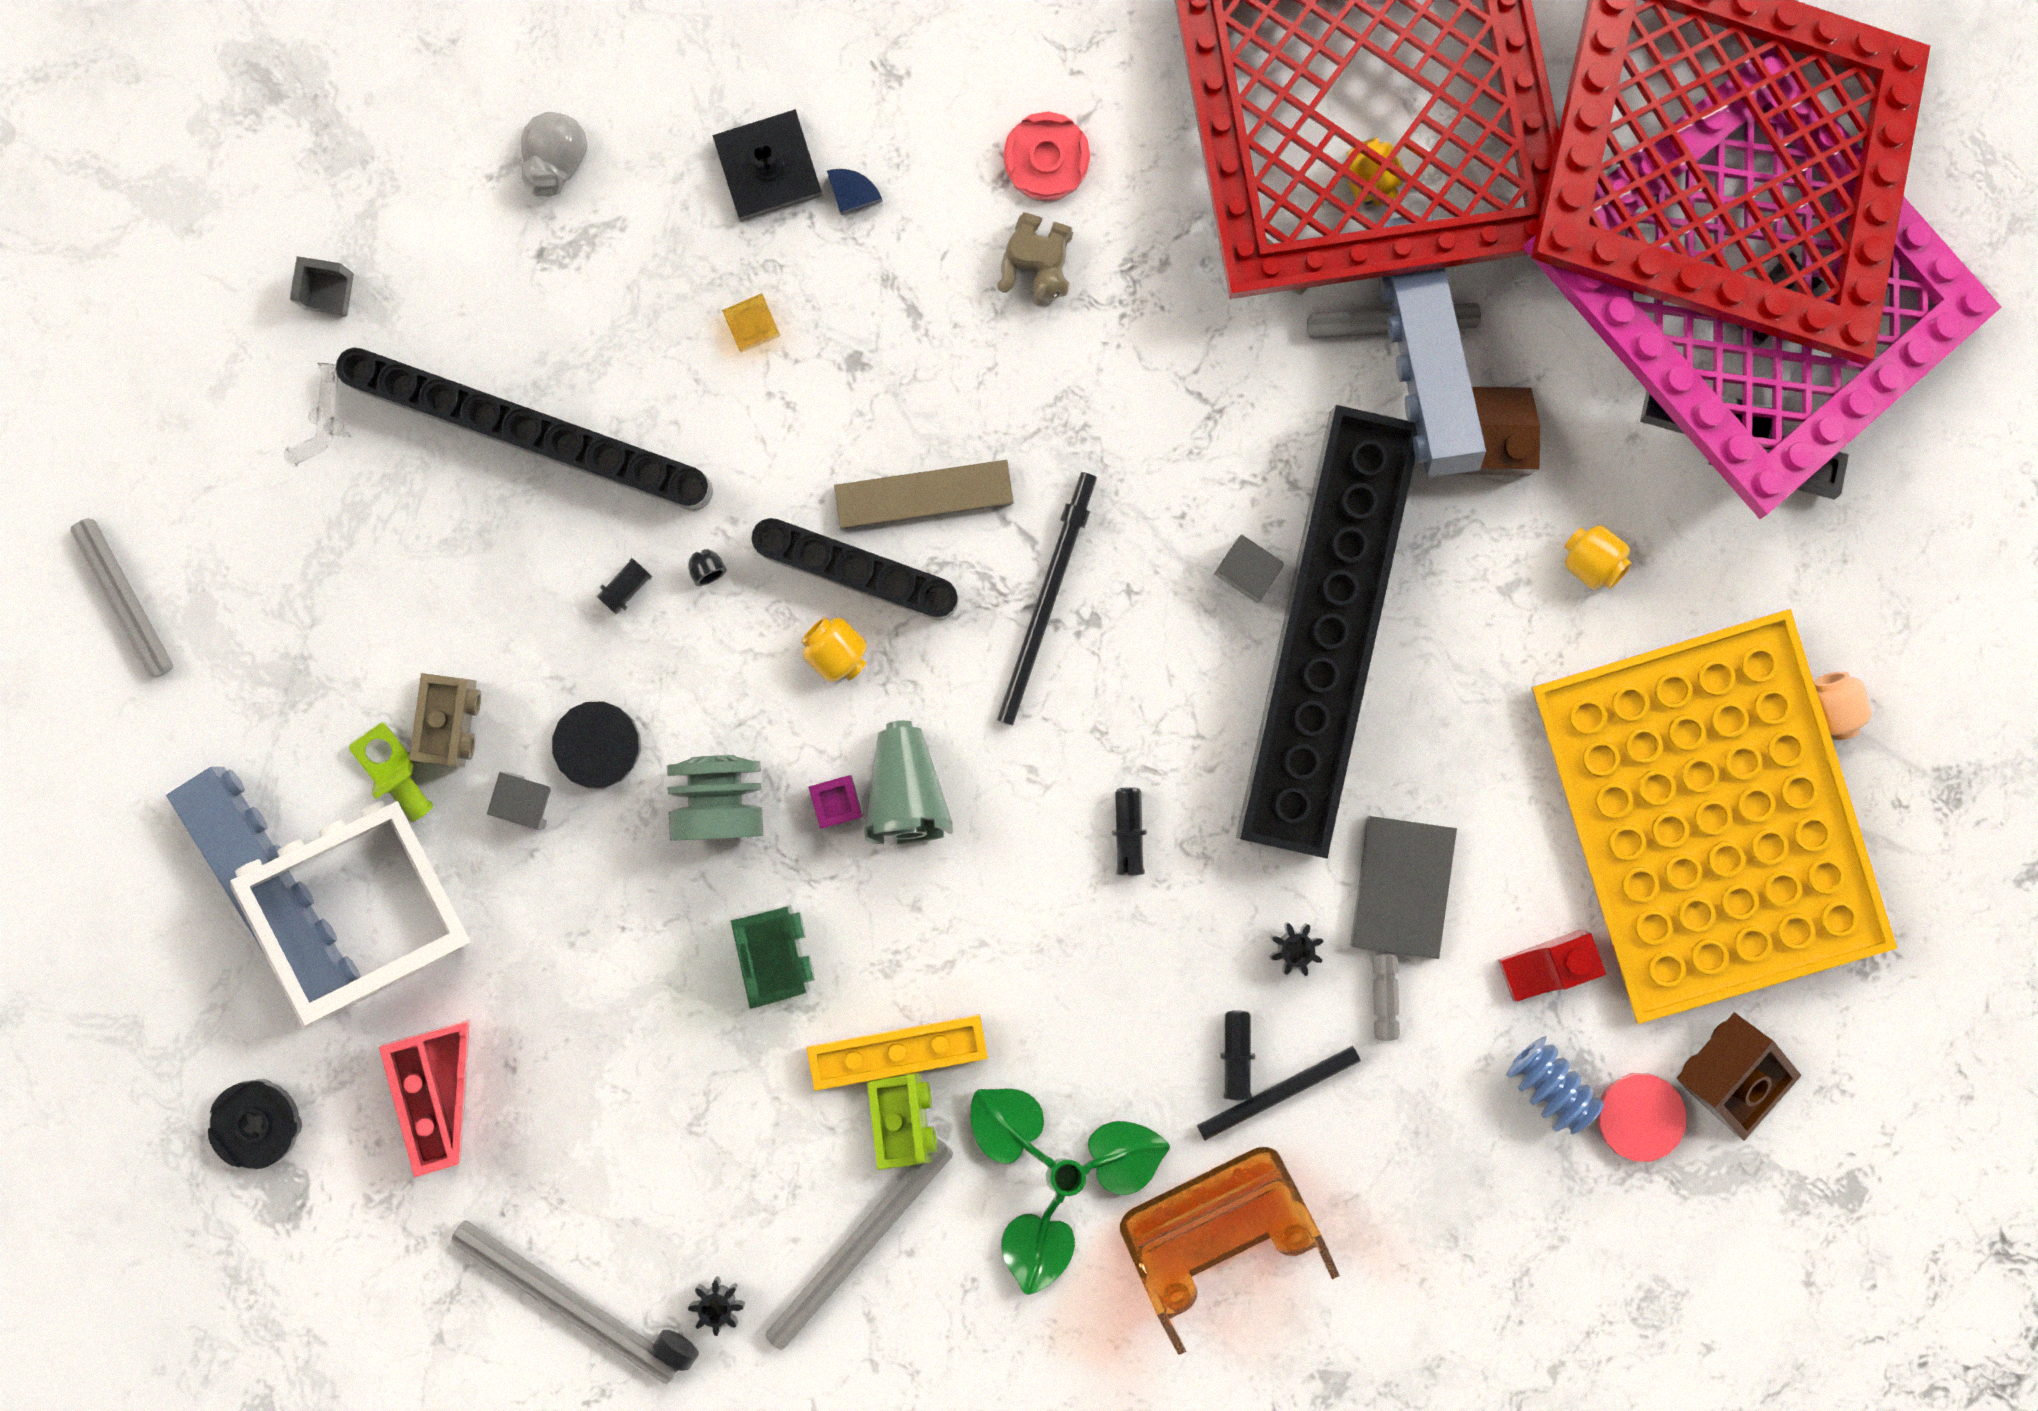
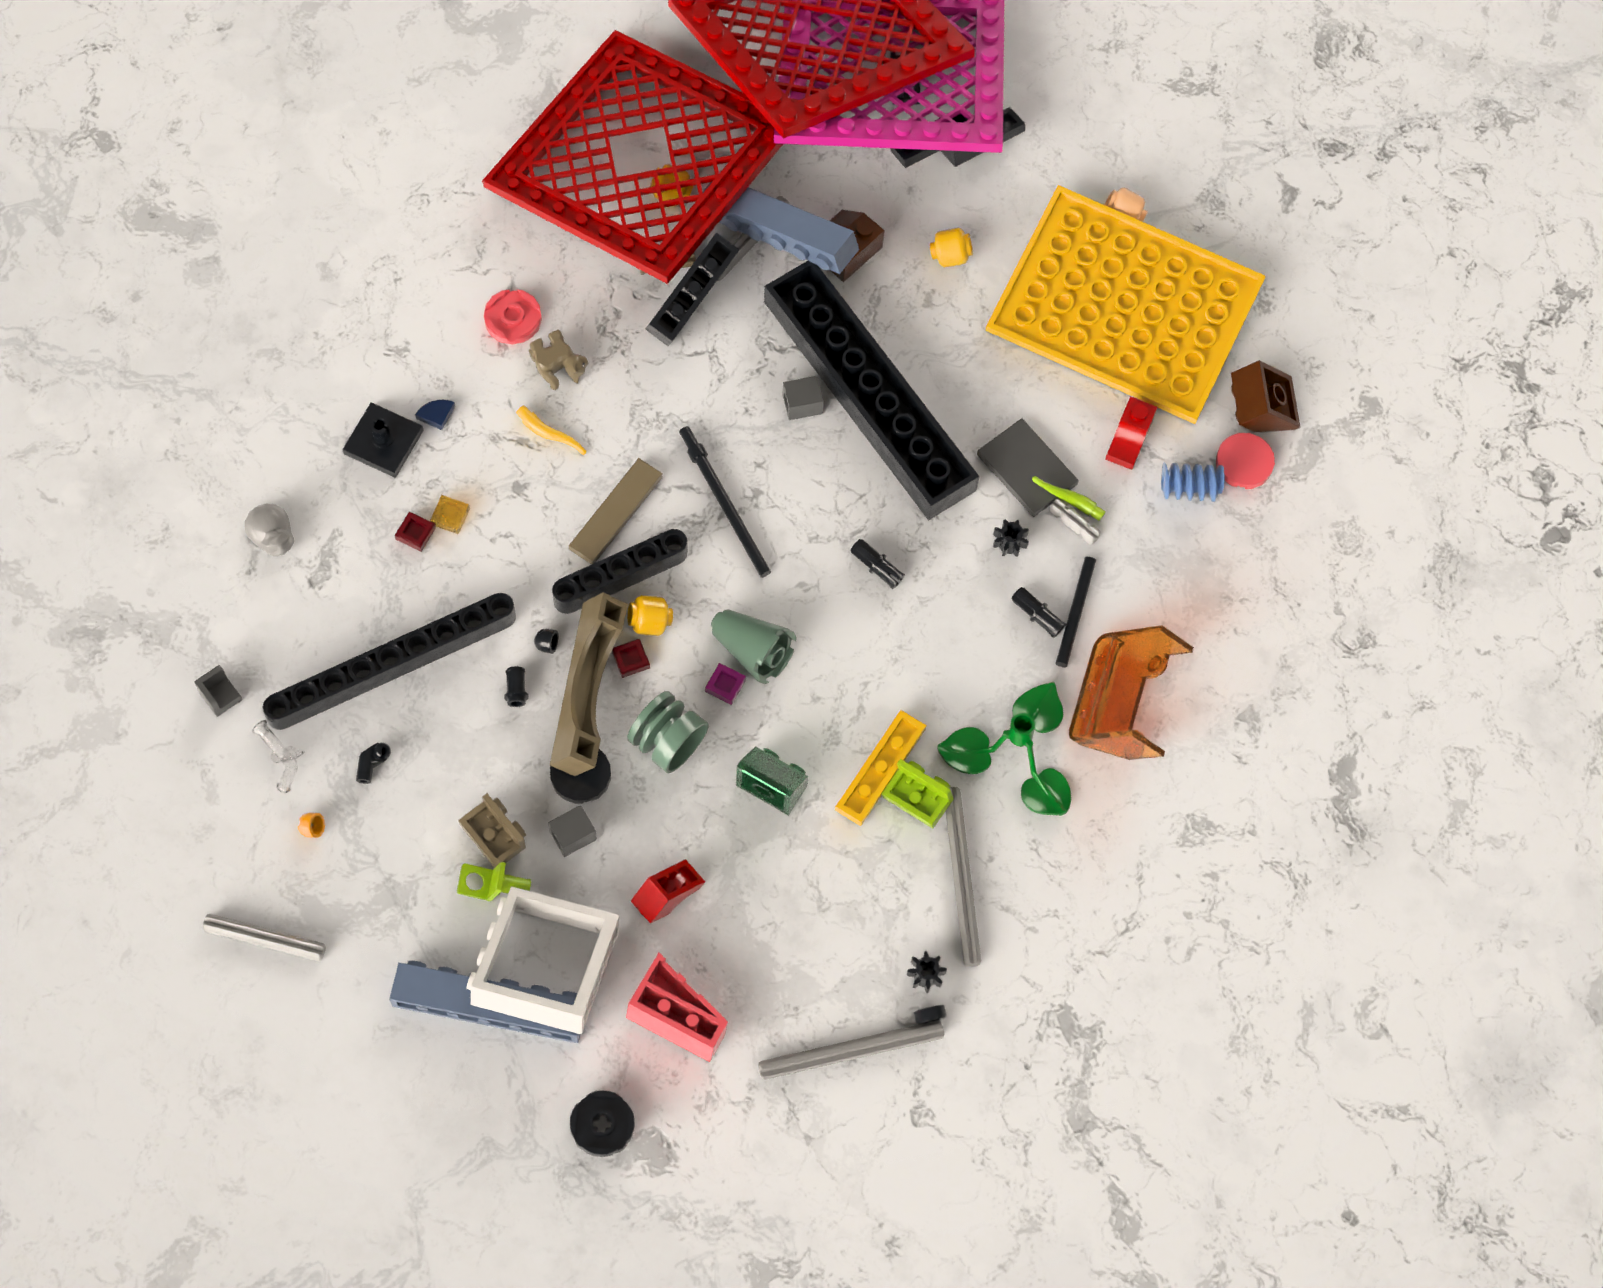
camera: 45 degrees left, 20 degrees down
(272, 532) = (317, 827): none -> light orange hinge
(403, 513) = (370, 759): none -> black arm
(551, 961) = (666, 890): none -> red arch
(622, 707) = (577, 733): none -> dark tan arch
(697, 305) = (415, 531): none -> dark red tile
(773, 672) = (630, 658): none -> dark red tile
(941, 316) = (540, 428): none -> yellow animal
(1257, 327) = (692, 289): none -> black brick
(1414, 979) = (1075, 499): none -> lime animal

